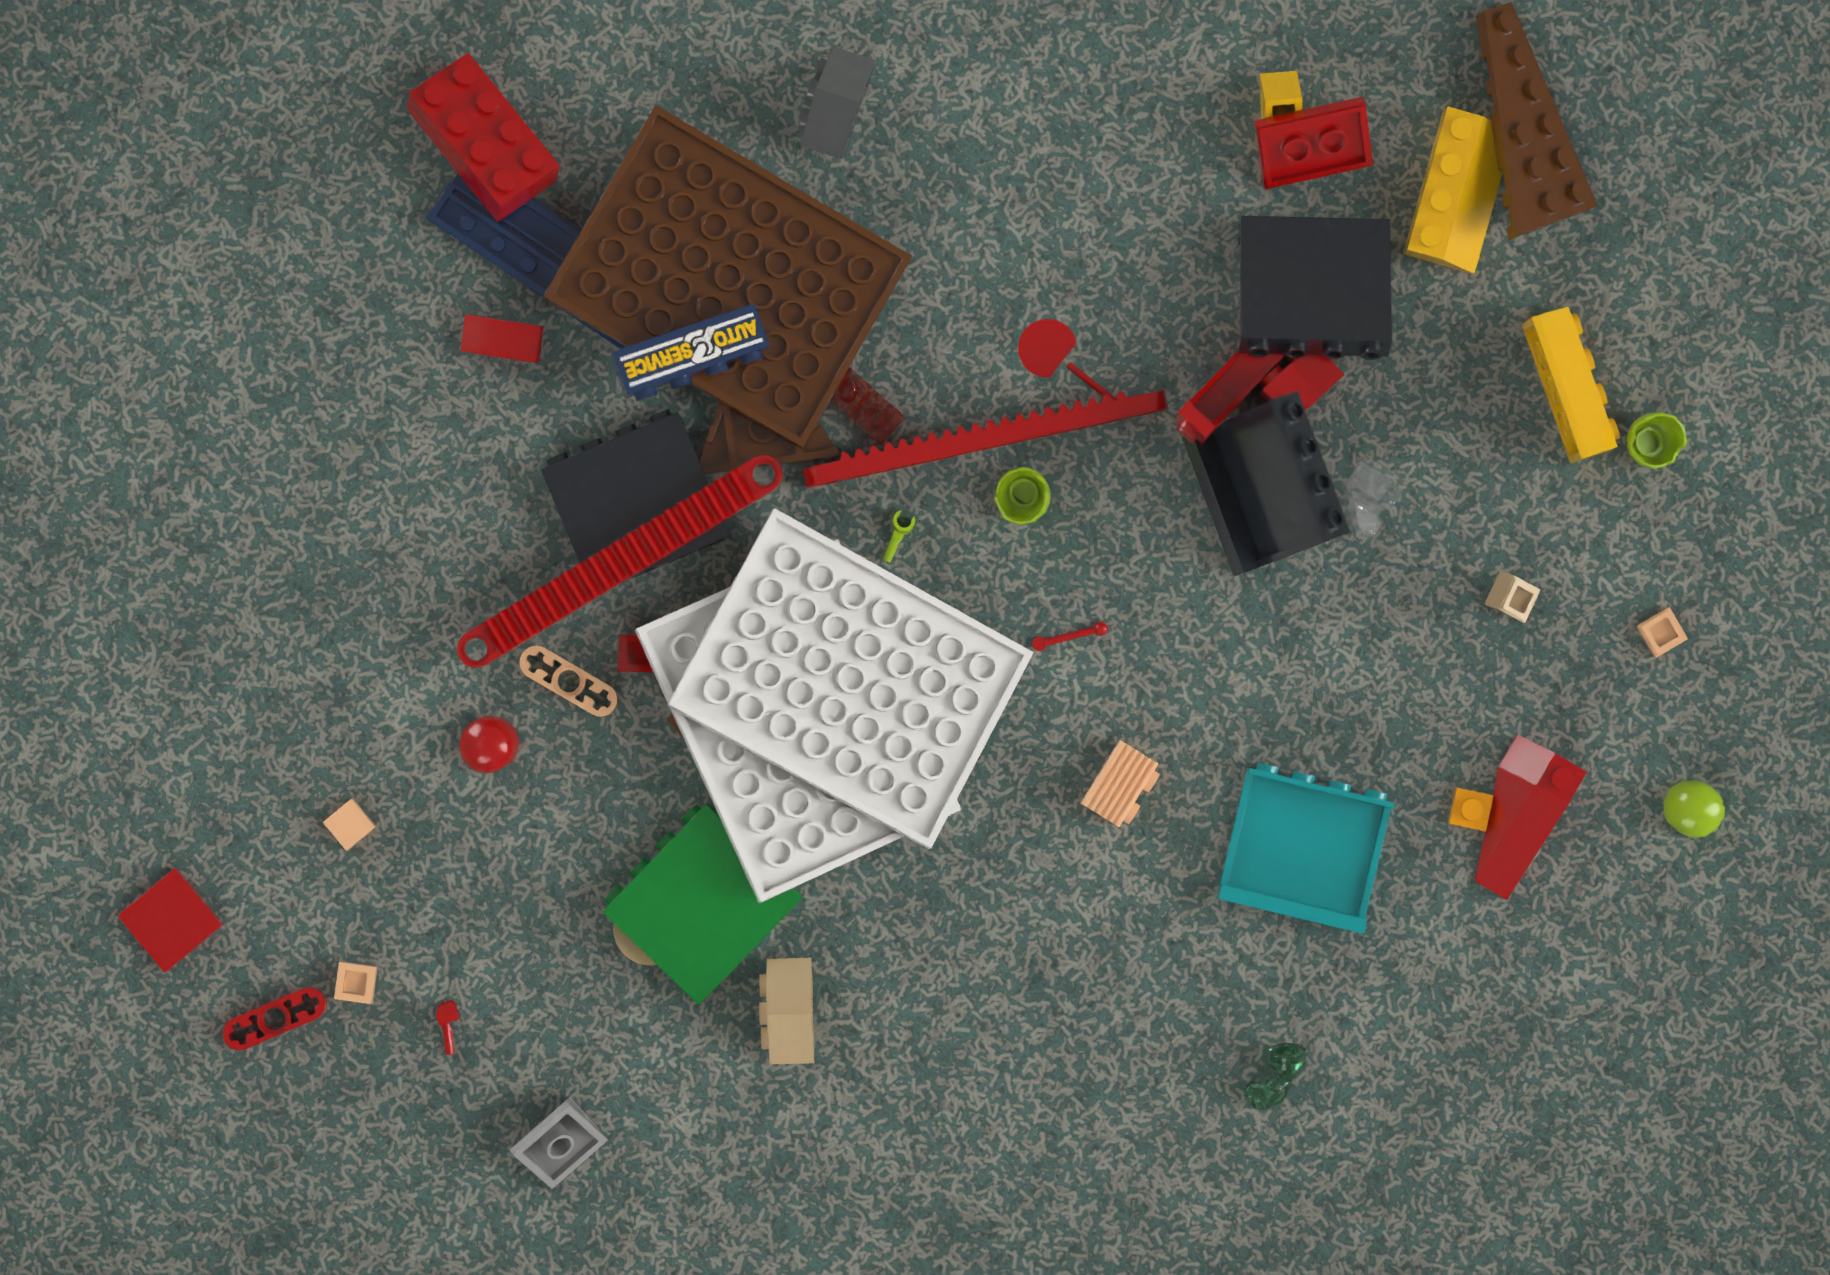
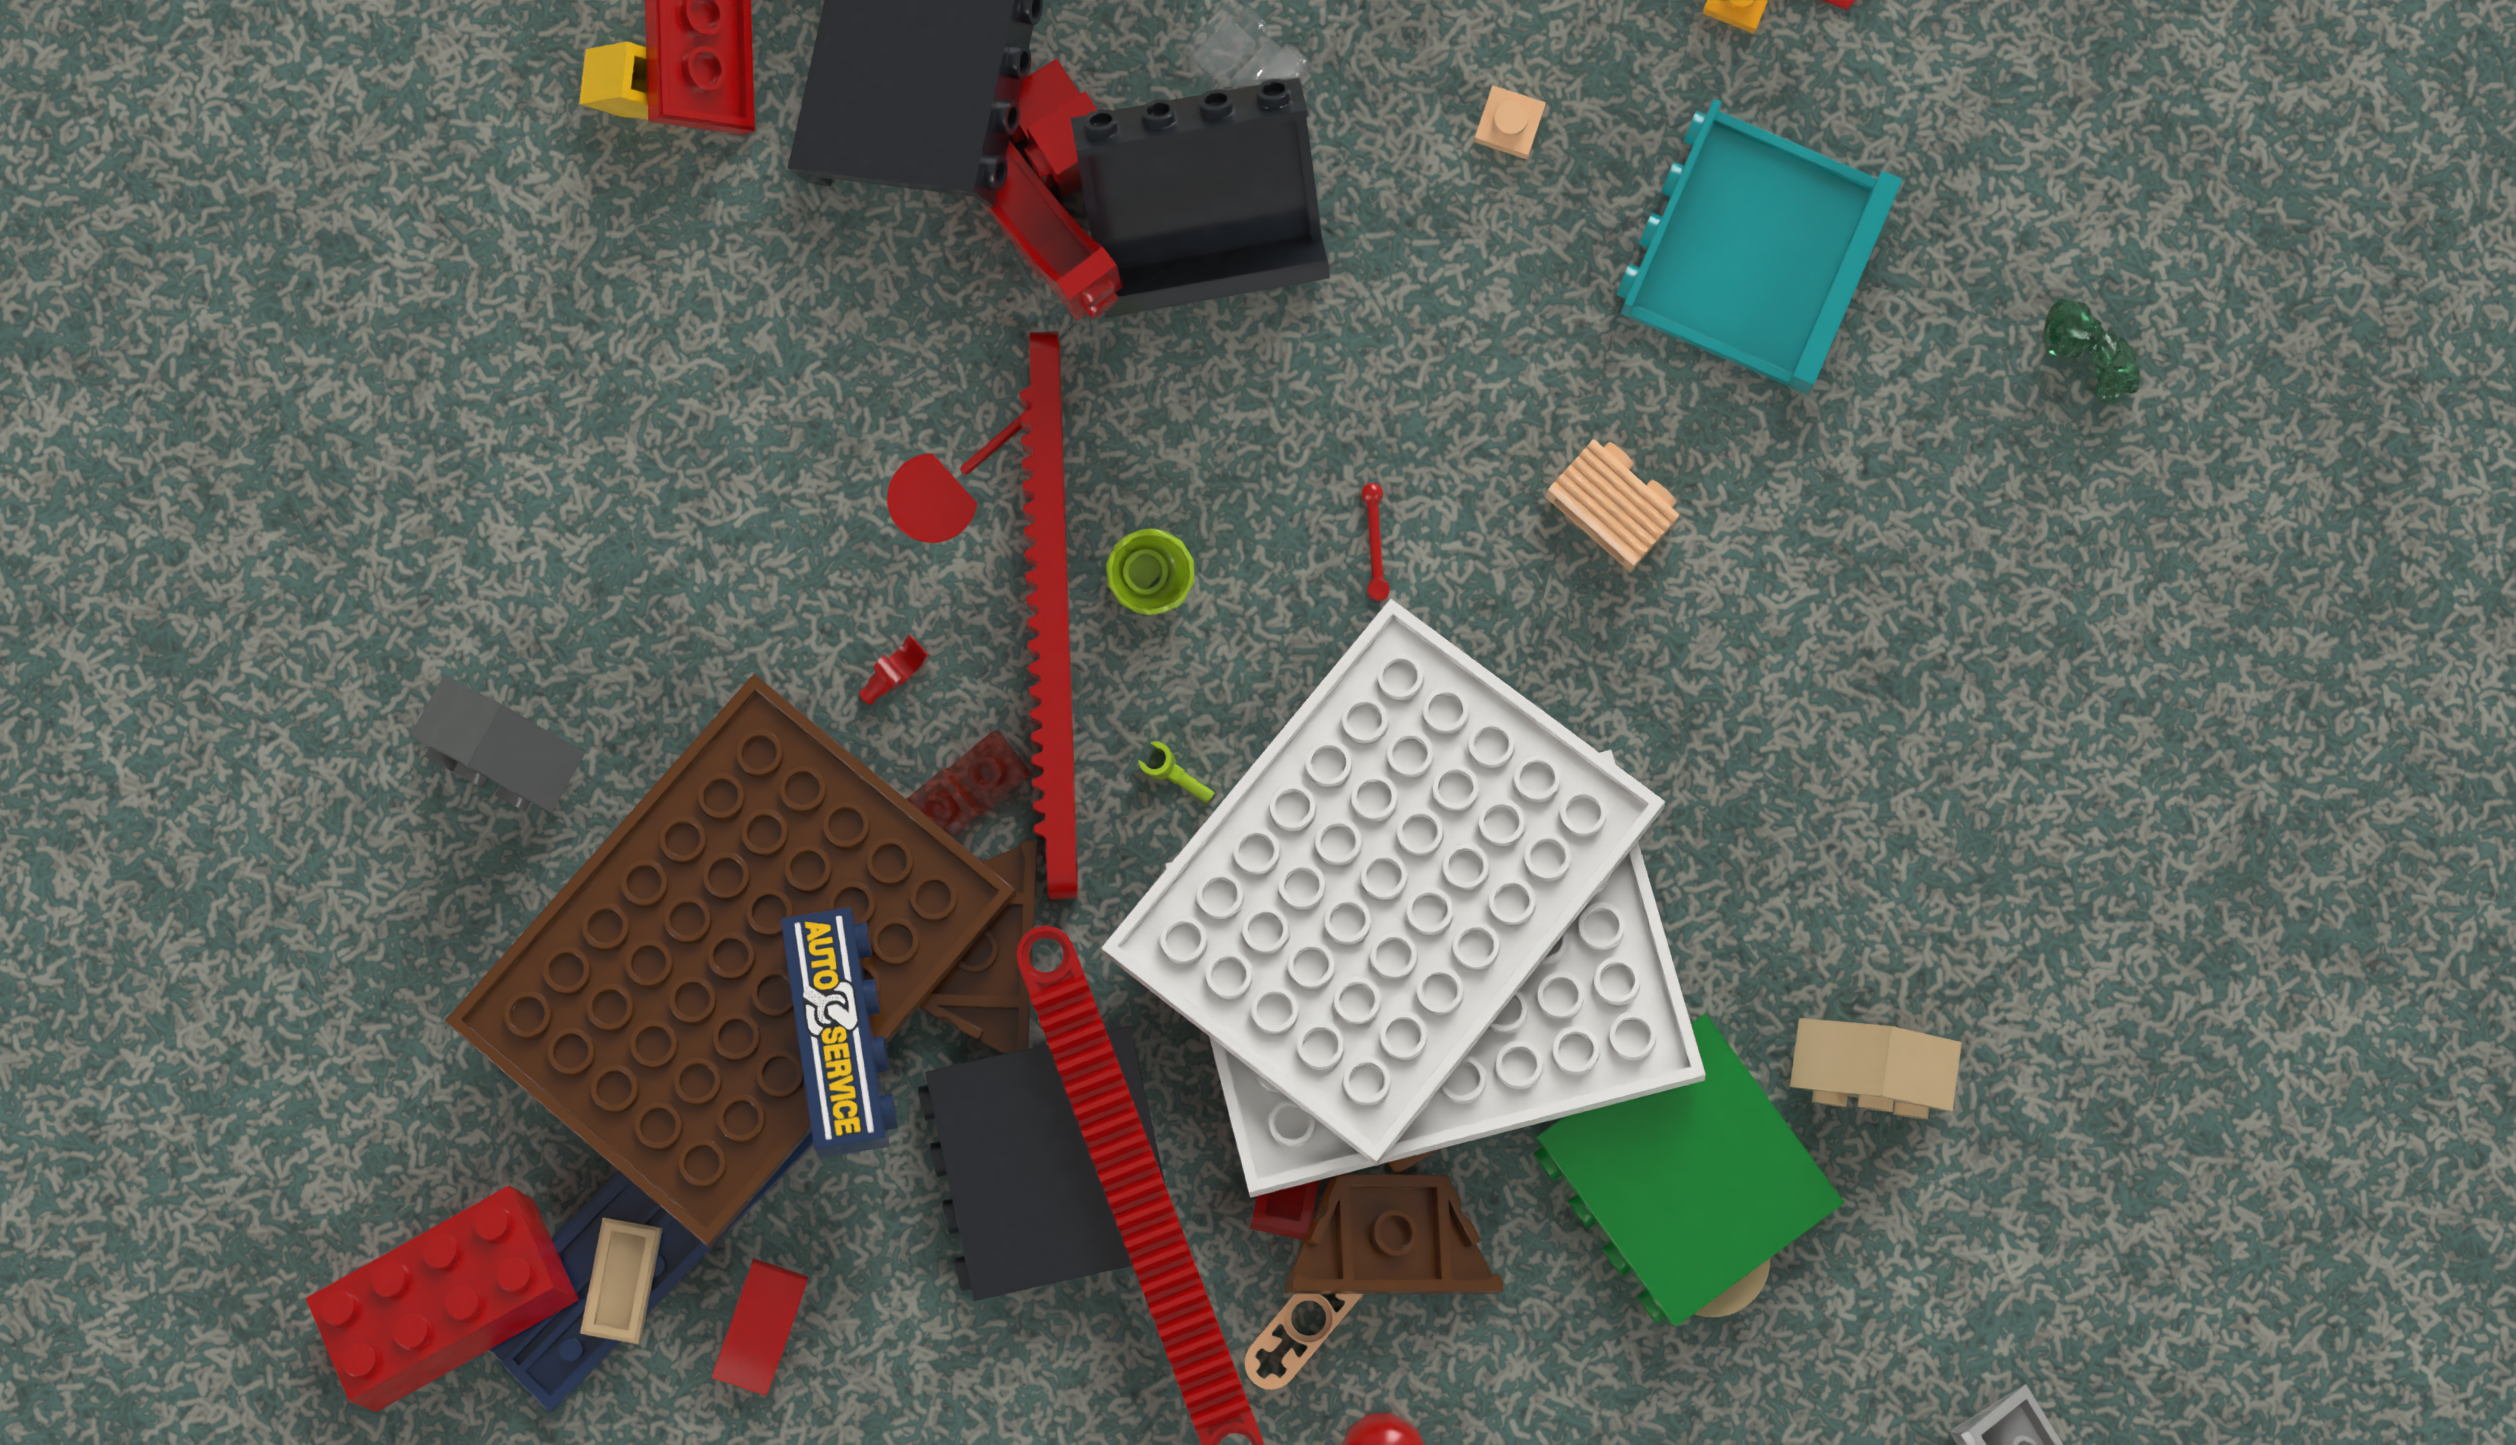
camera: 80 degrees left, 5 degrees down
(514, 246) = (621, 1280): none -> tan tile
(625, 723) = (1391, 1240): none -> reddish brown wing
(931, 344) = (895, 670): none -> red piece
(1359, 674) = (1509, 122): none -> light nougat plate

